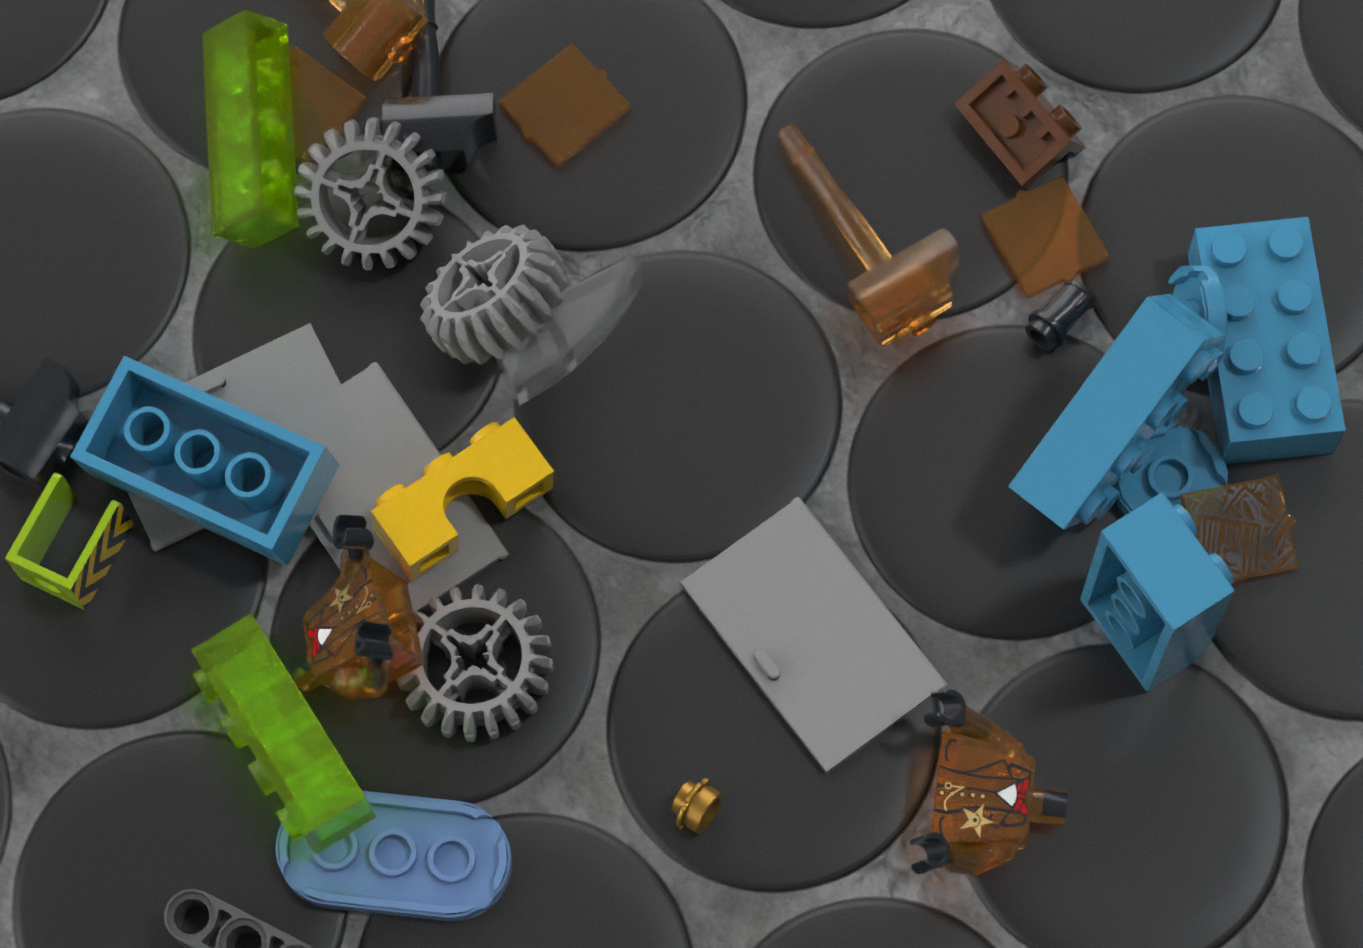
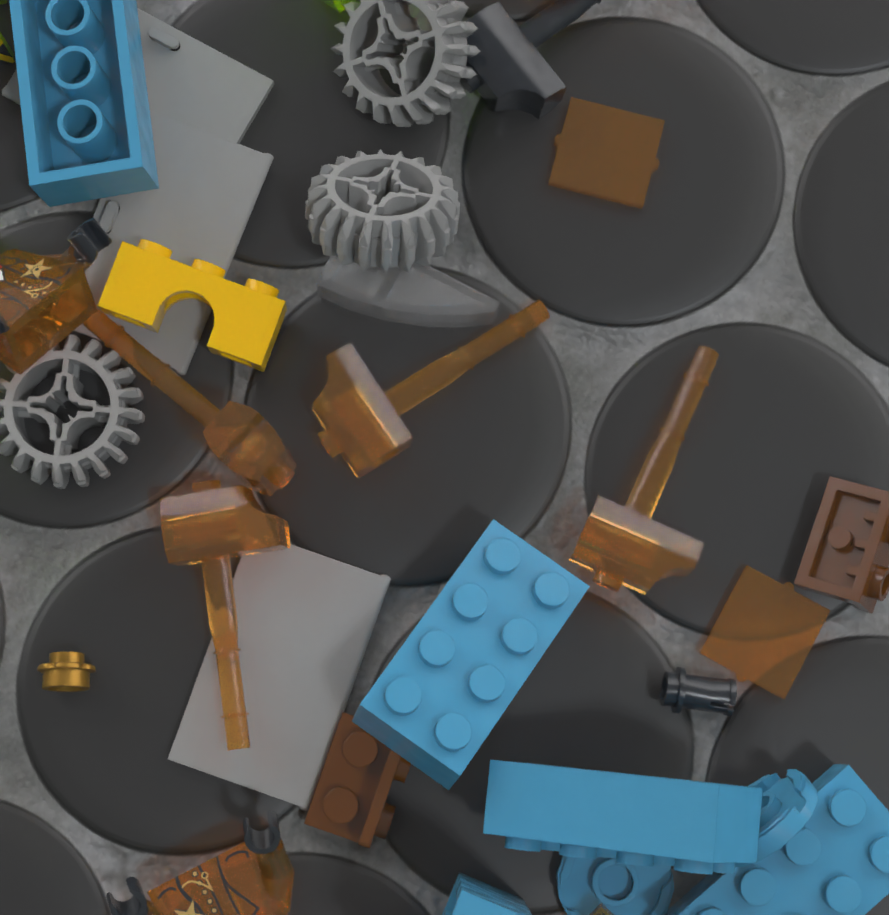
camera: 50 degrees right, 10 degrees up
(613, 526) = (234, 434): none -> clear orange piece
(654, 427) = (366, 422): none -> clear orange piece
(661, 605) = (210, 530): none -> clear orange piece
(910, 458) = (470, 654): none -> dark azure brick
(953, 623) = (356, 786): none -> reddish brown bracket

